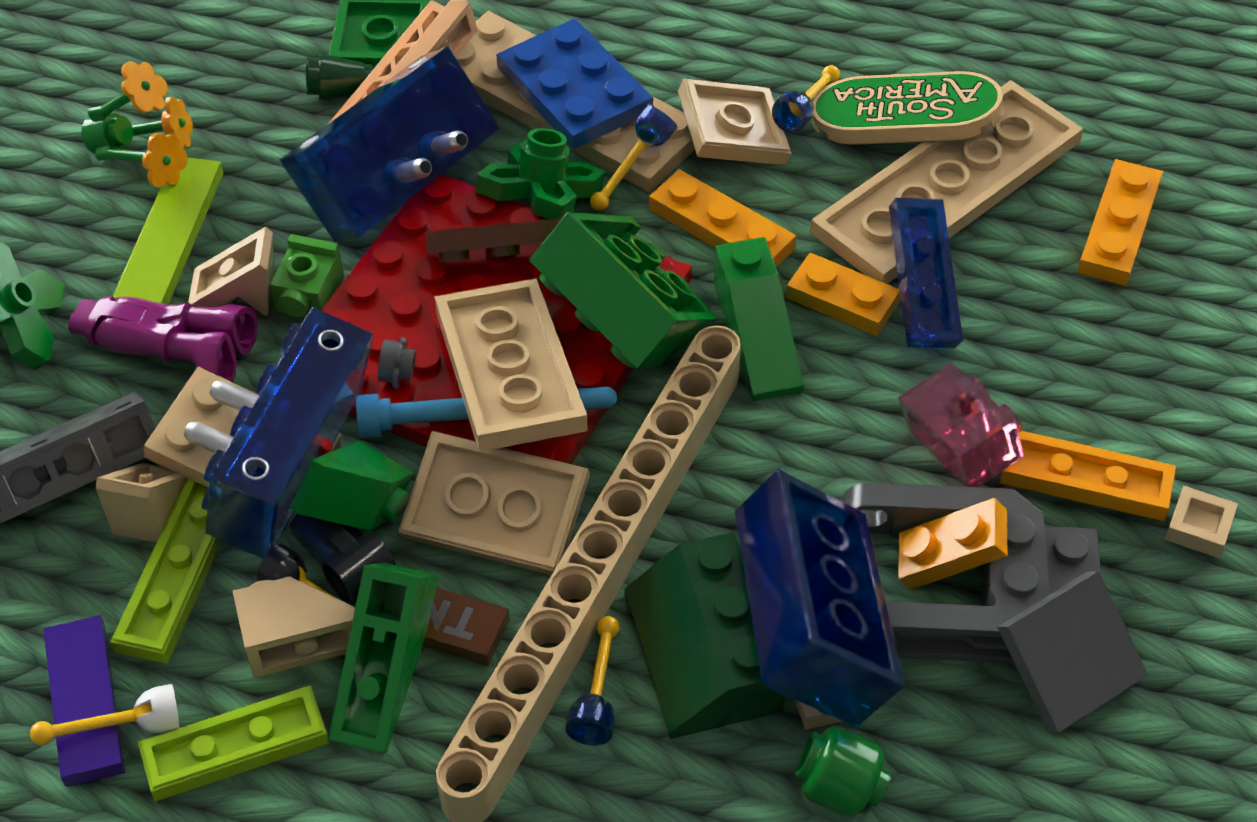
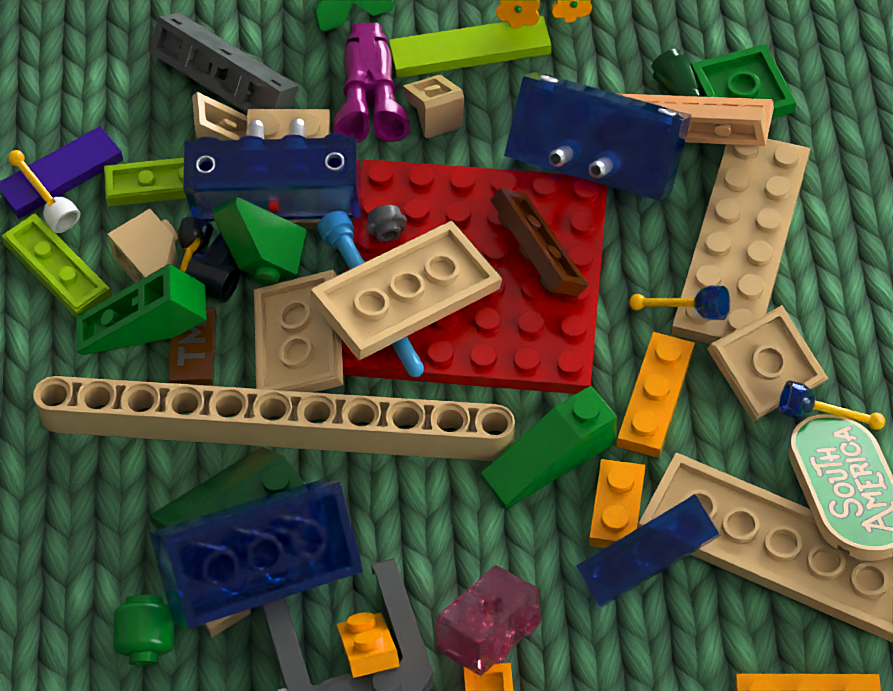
camera: 70 degrees right, 5 degrees up
(306, 275) = (457, 142): bright green brick -> none
(541, 175) = (628, 249): green plant -> none
(574, 83) = (741, 233): blue plate -> none
(590, 716) = (143, 459): hinge -> none
(621, 287) = (517, 336): green wedge -> none

